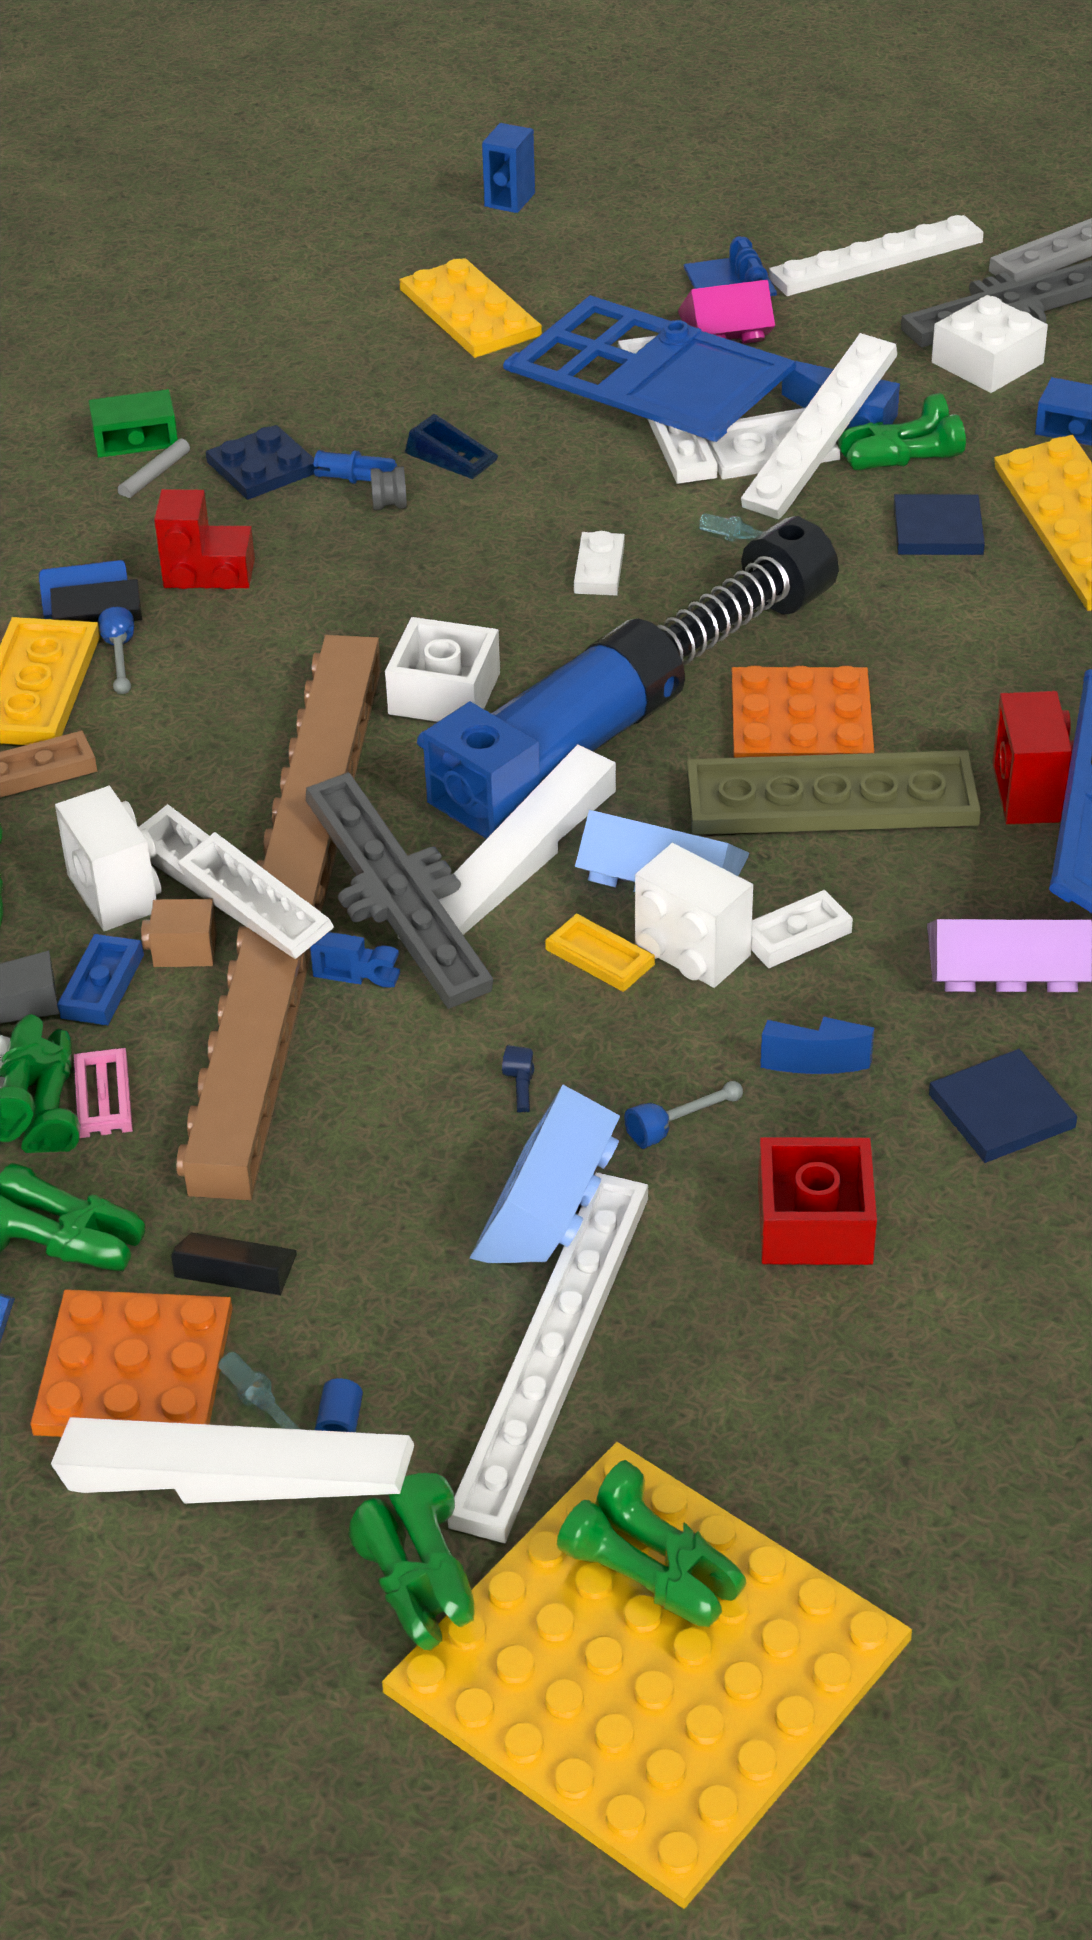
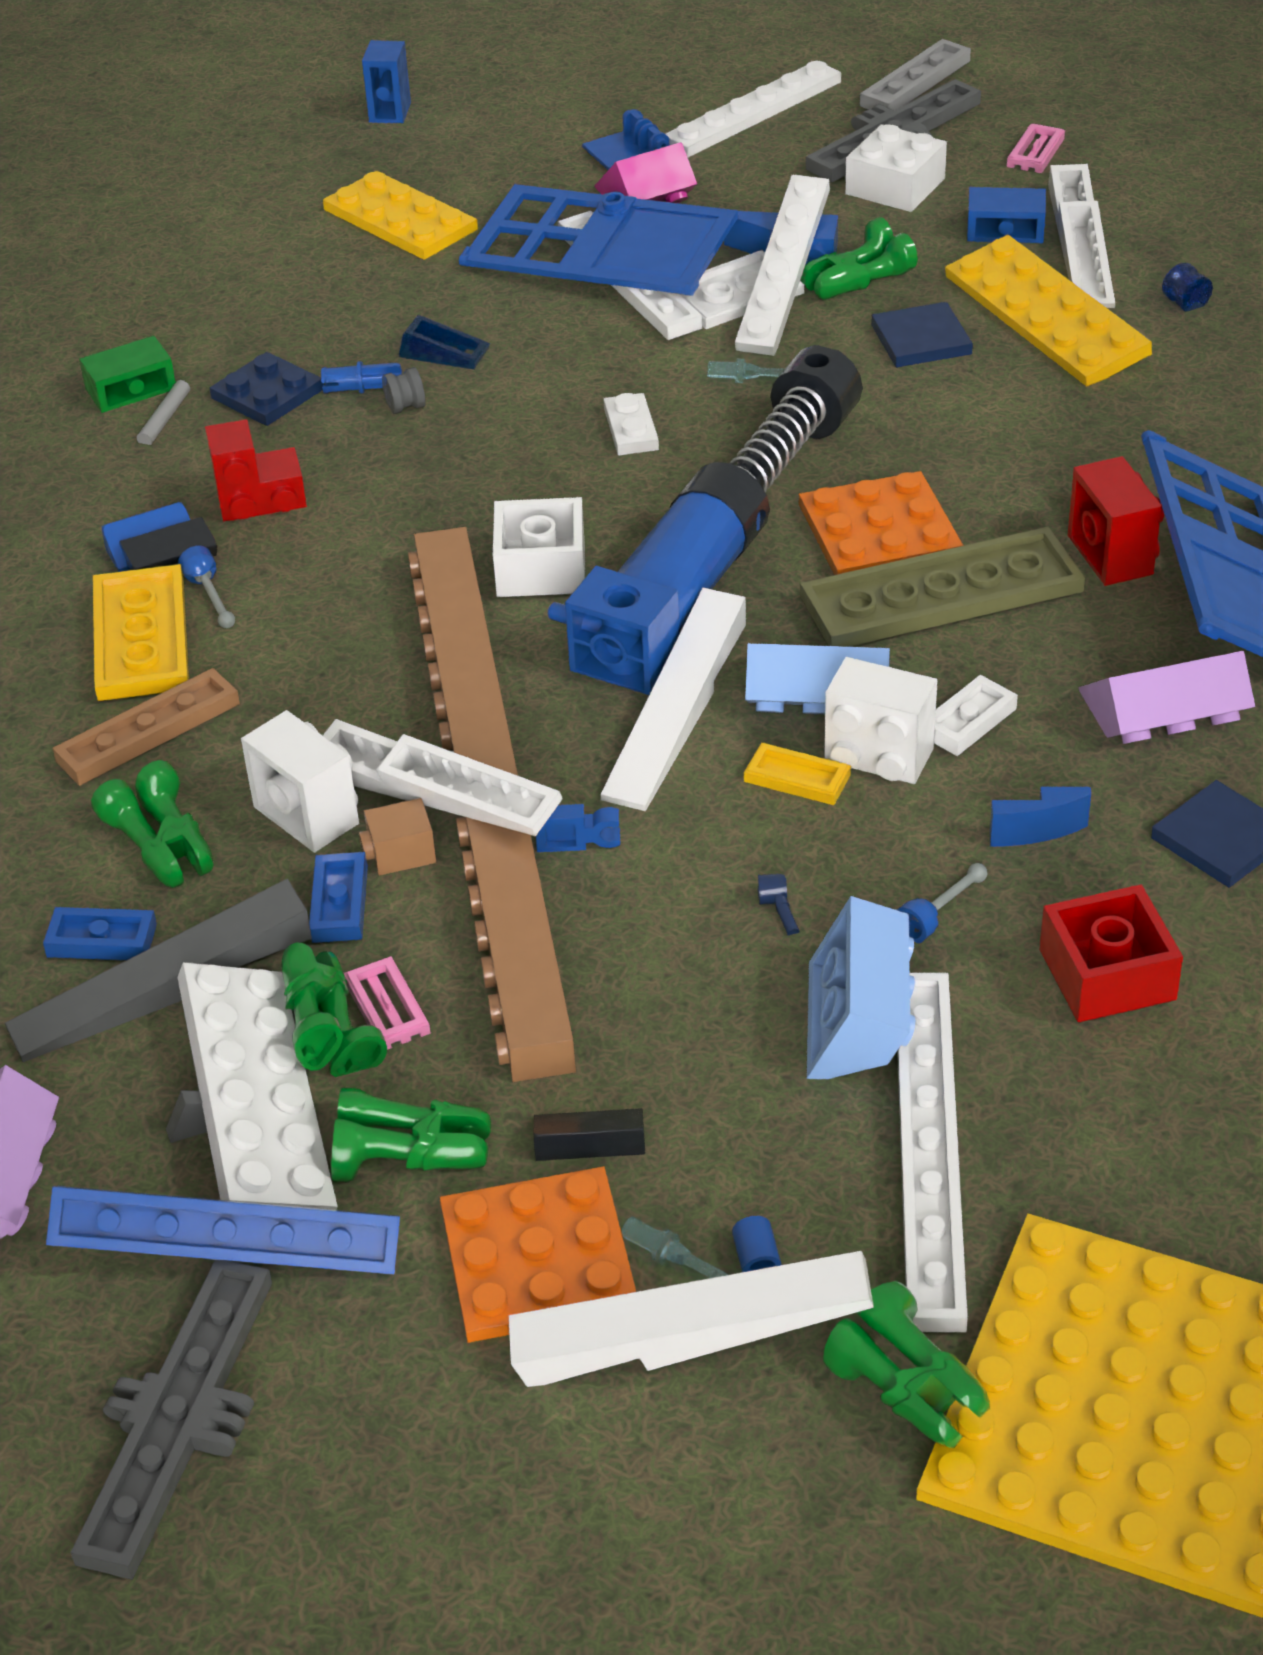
camera: 15 degrees left, 0 degrees up
(399, 890) = (595, 753): dark grey hinge -> none
(692, 1566) = (1163, 1315): green piece -> none

